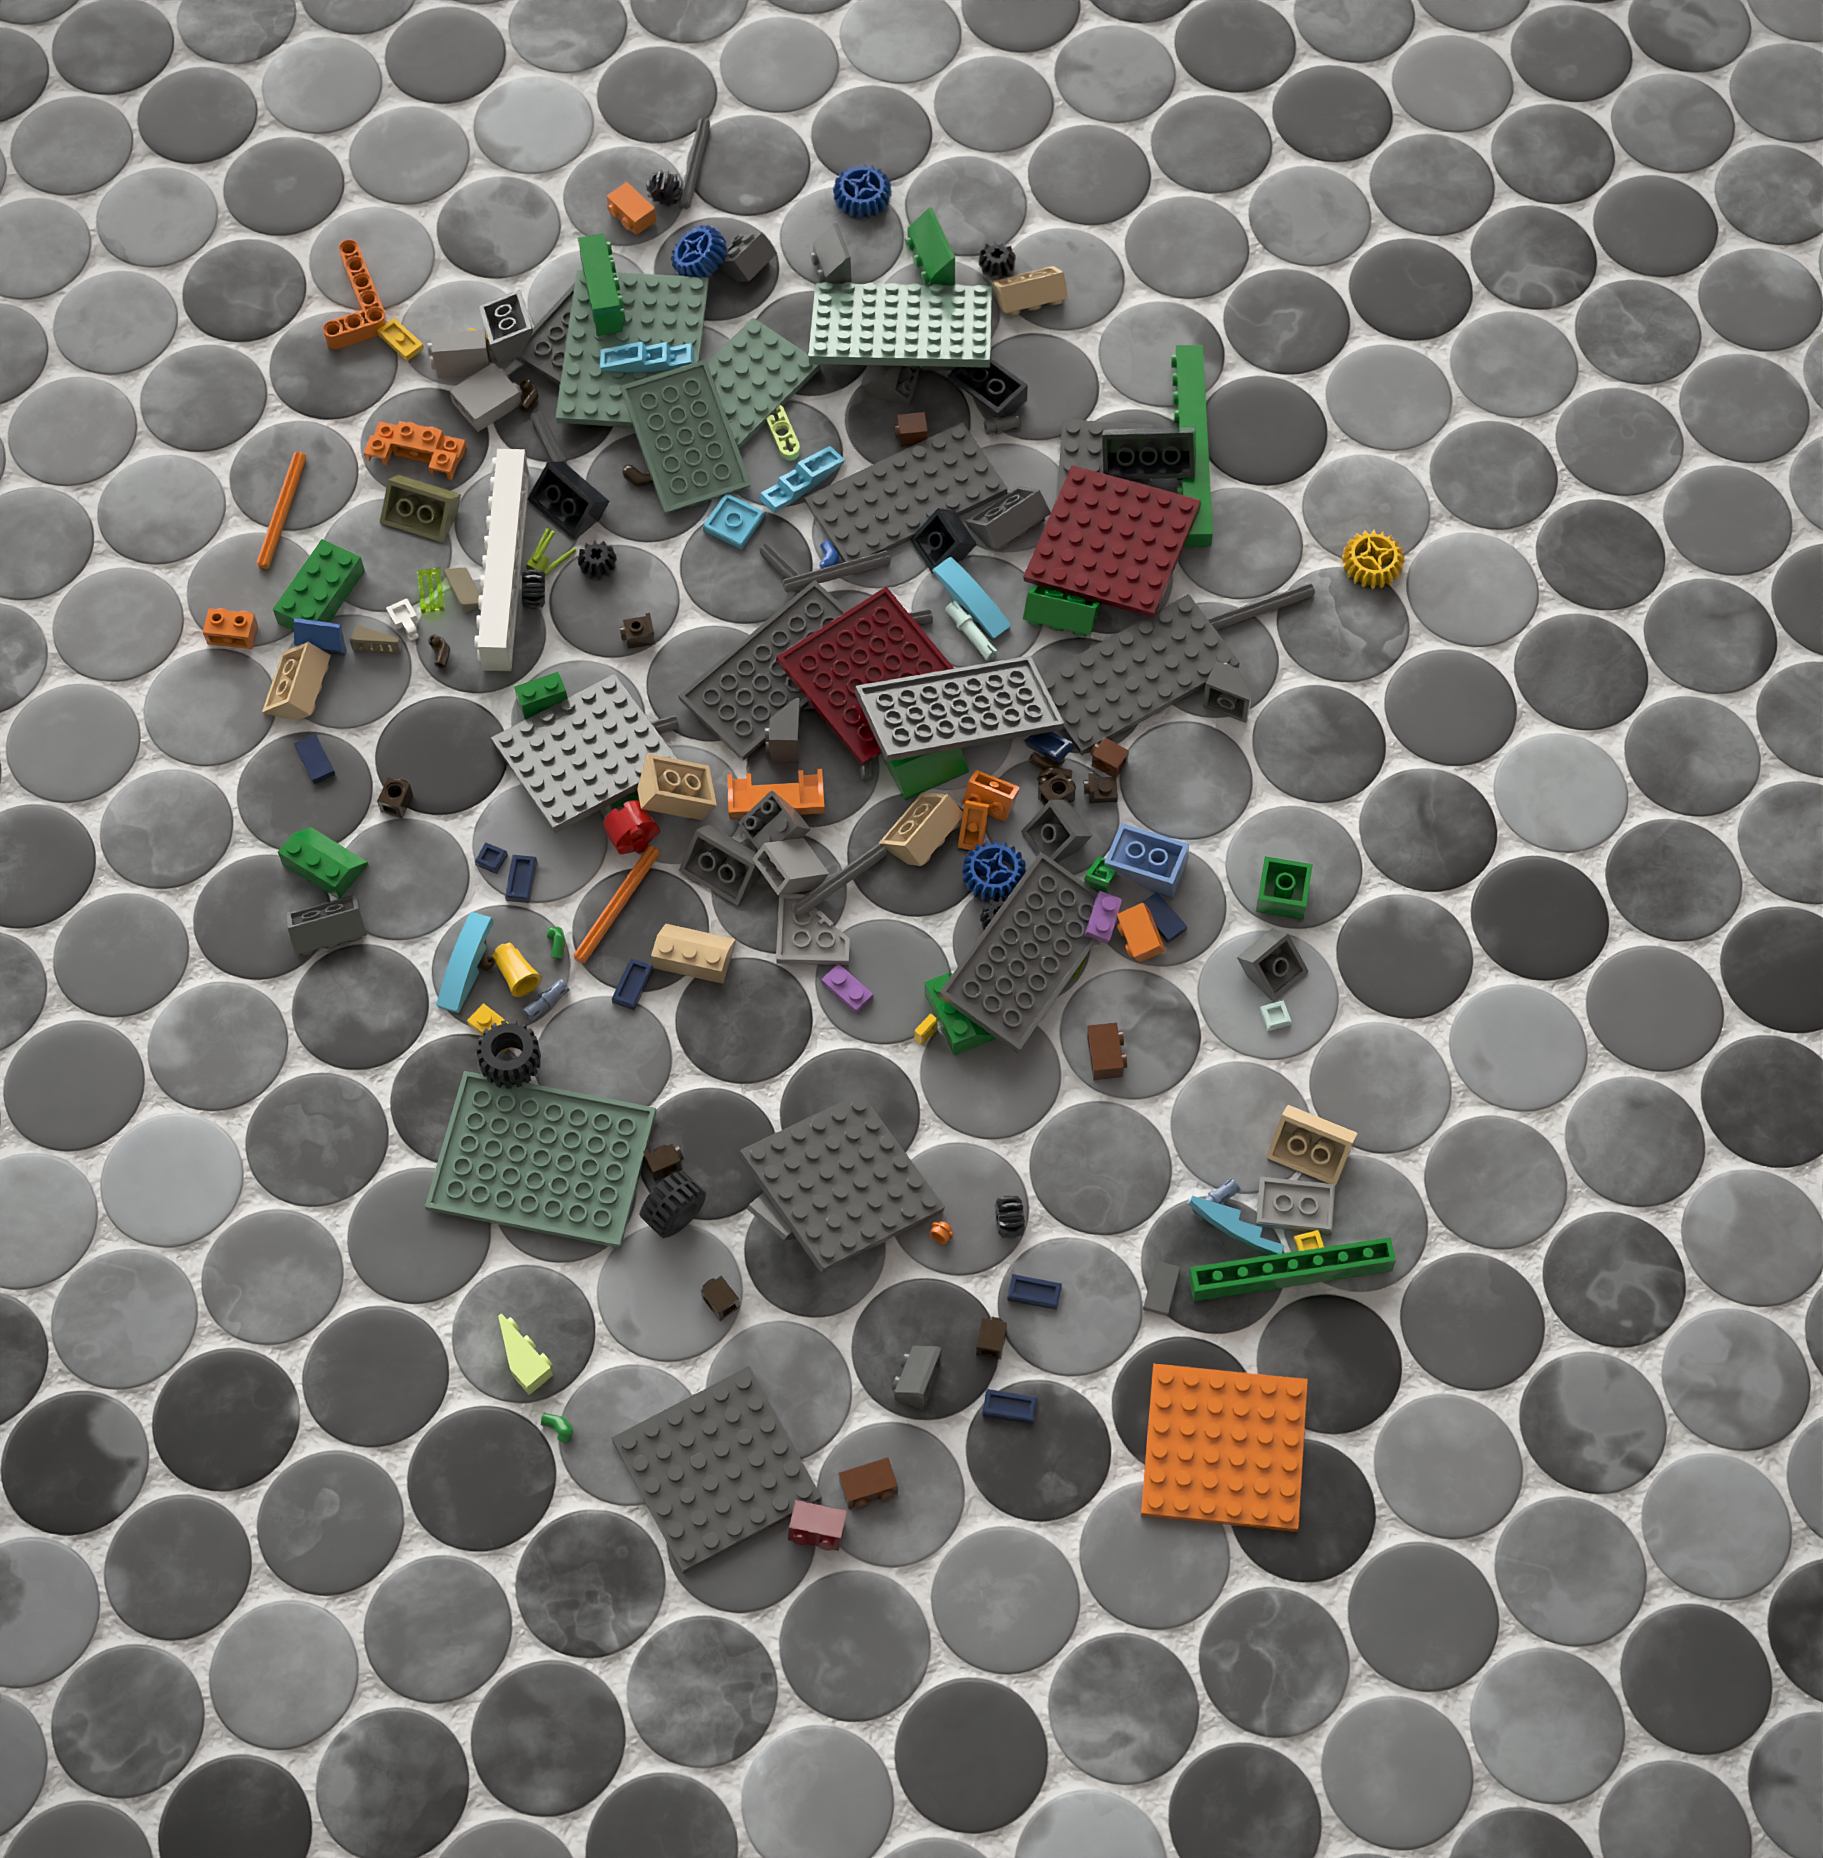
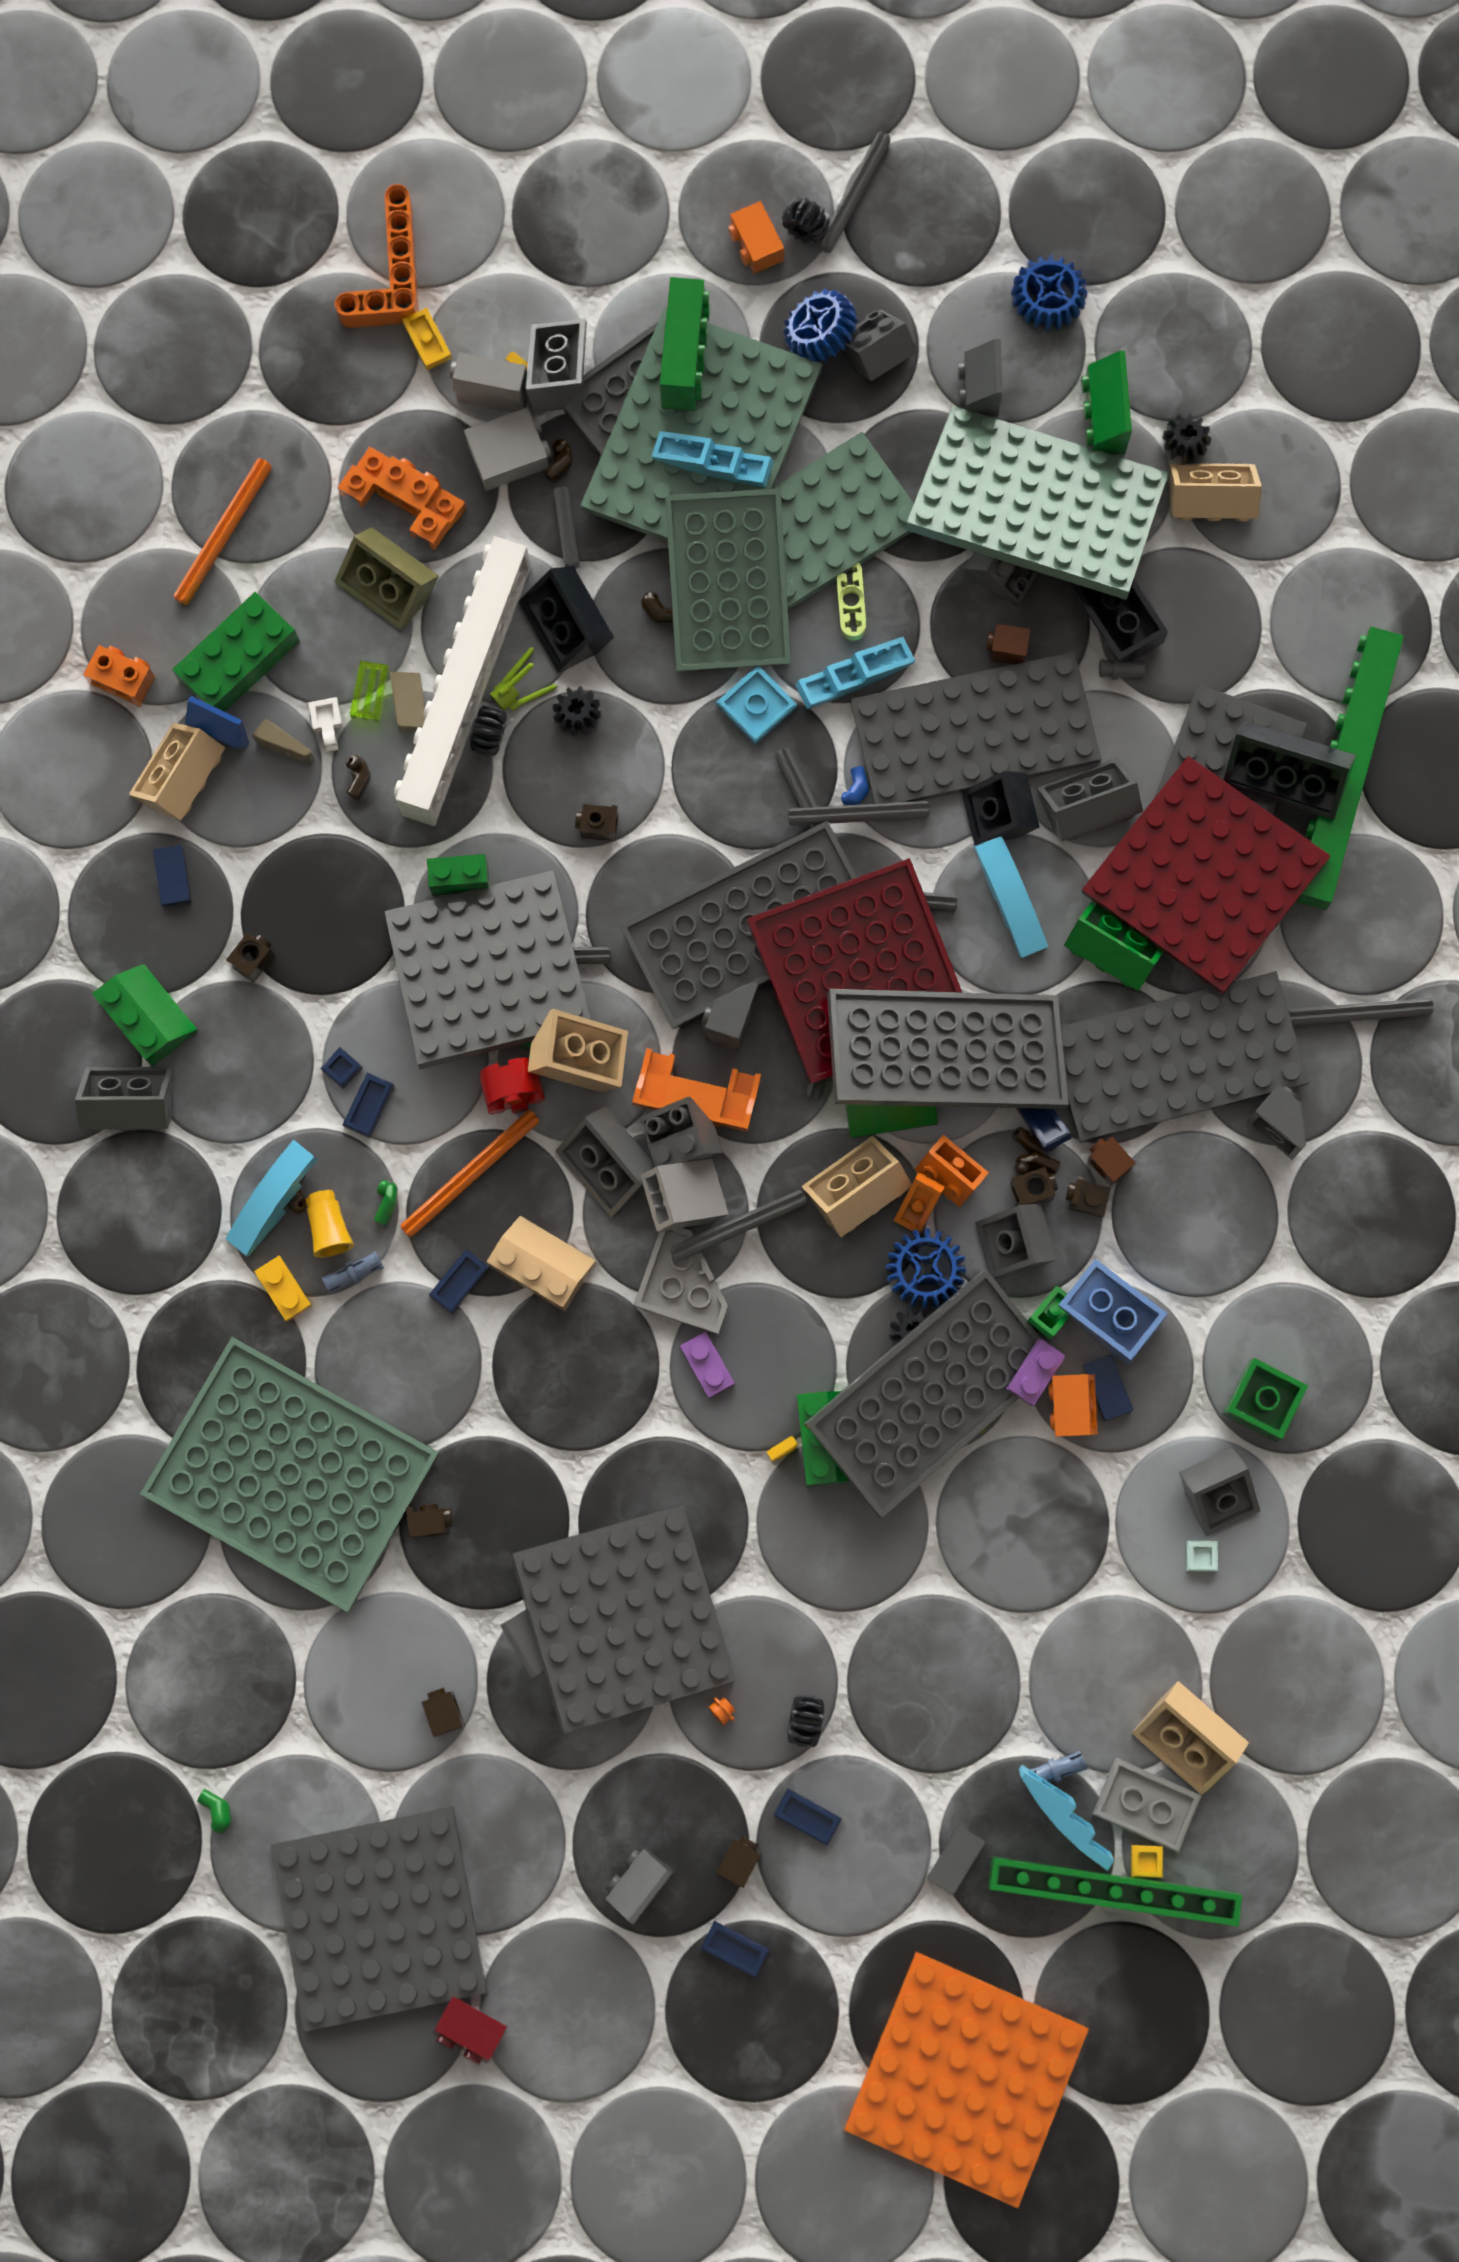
camera: 20 degrees right, 15 degrees up
(508, 1036) = (268, 1320): black tyre -> none
(525, 1363) = (198, 1721): yellowish green slope -> none
(672, 1204) = (419, 1587): black tyre -> none
(868, 1484) = (543, 1995): reddish brown brick -> none
(965, 624) = (993, 929): light aqua pin -> none
(1105, 1051) = (985, 1542): reddish brown brick -> none

